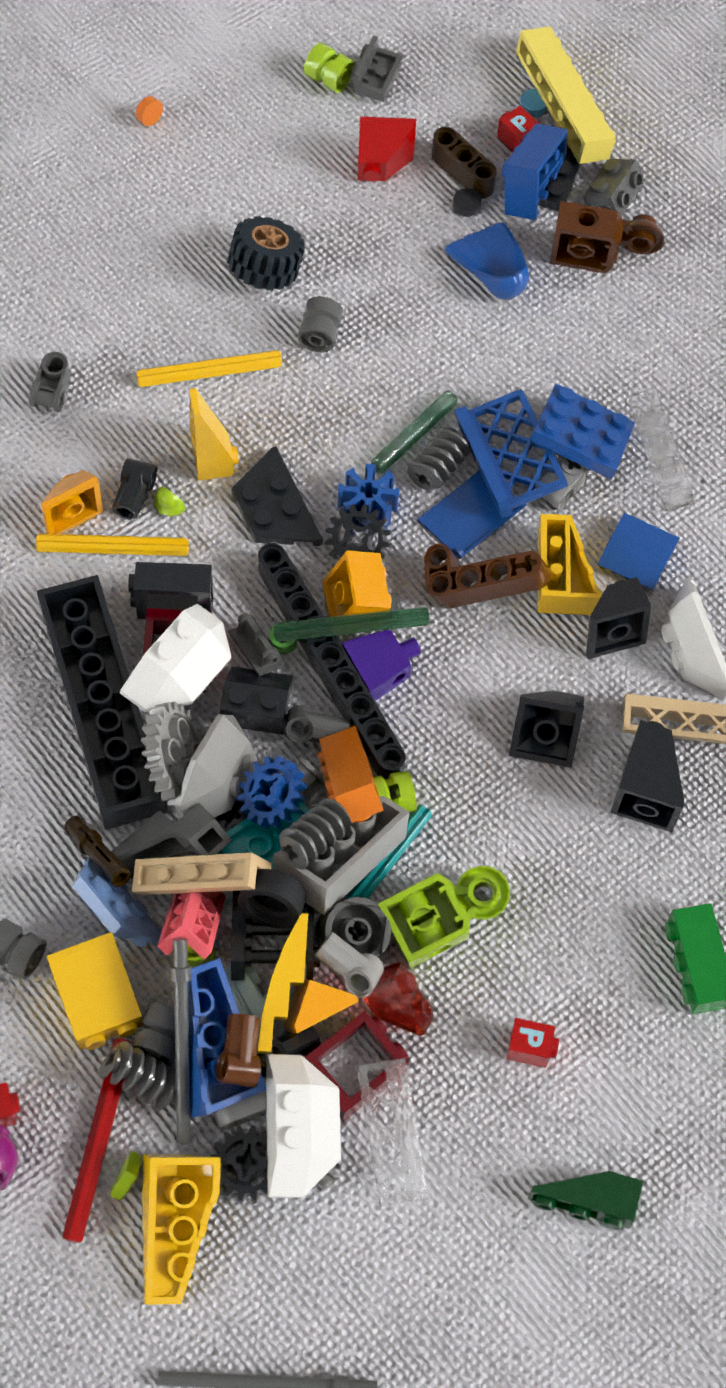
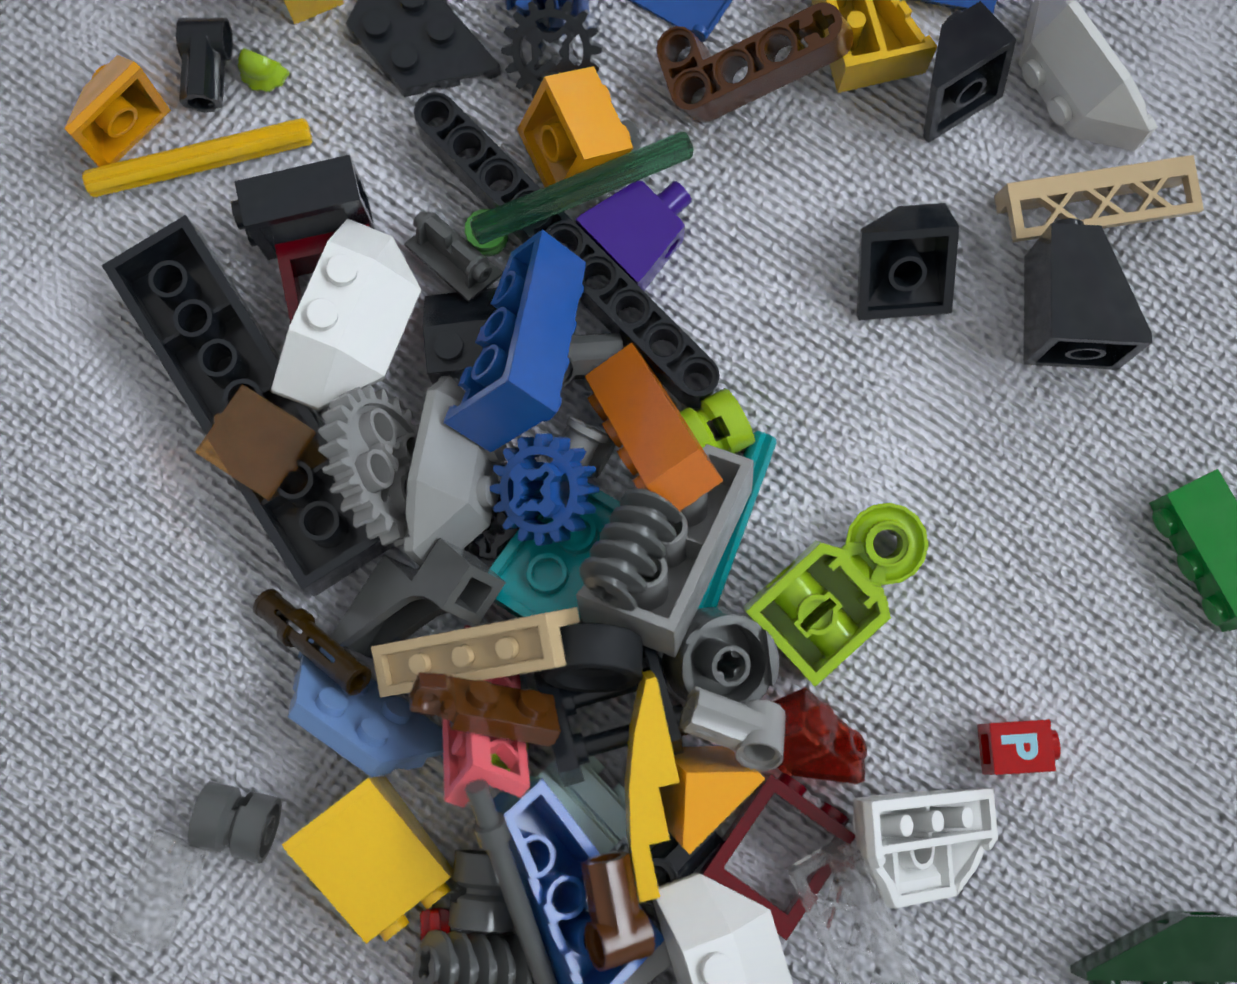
camera: 10 degrees left, 15 degrees up
(100, 719) = (255, 442): none -> clear orange piece
(198, 904) = (487, 708): none -> reddish brown hinge
(284, 704) = (523, 345): none -> blue wedge
(452, 1075) = (924, 841): none -> white wedge

